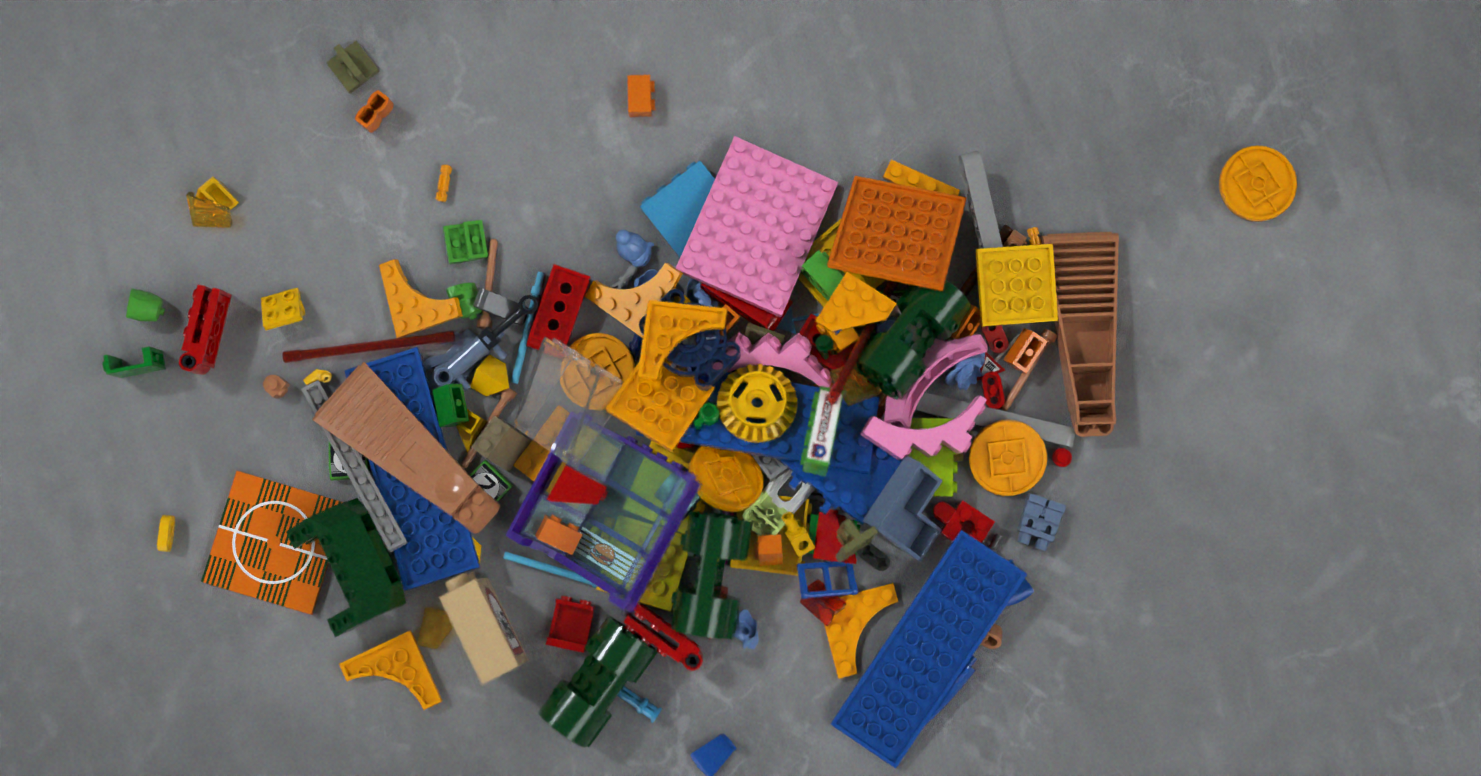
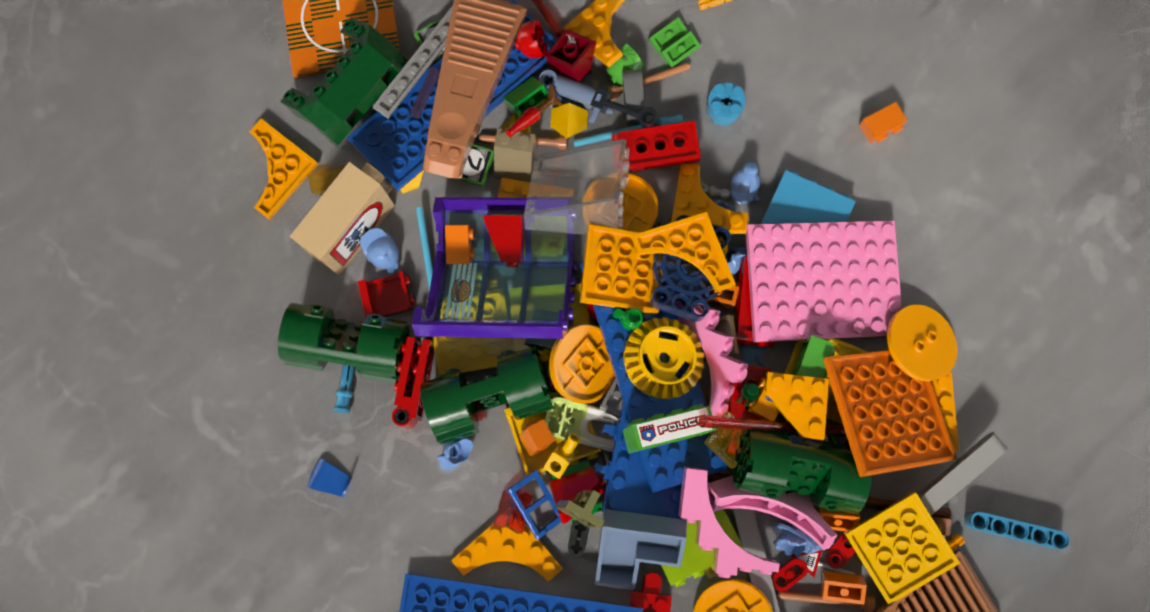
camera: 65 degrees right, 5 degrees down
(398, 374) = (531, 41): none -> red cylinder
(398, 497) = (425, 93): none -> clear purple axle
(431, 343) = (571, 55): none -> dark red slope
(472, 407) = (533, 114): none -> red piece
(526, 609) = (380, 249): none -> medium blue hair
(545, 216) = (729, 94): none -> dark azure brick
(853, 171) = (922, 343): none -> light orange plate
(1052, 171) = (1025, 534): none -> dark azure beam

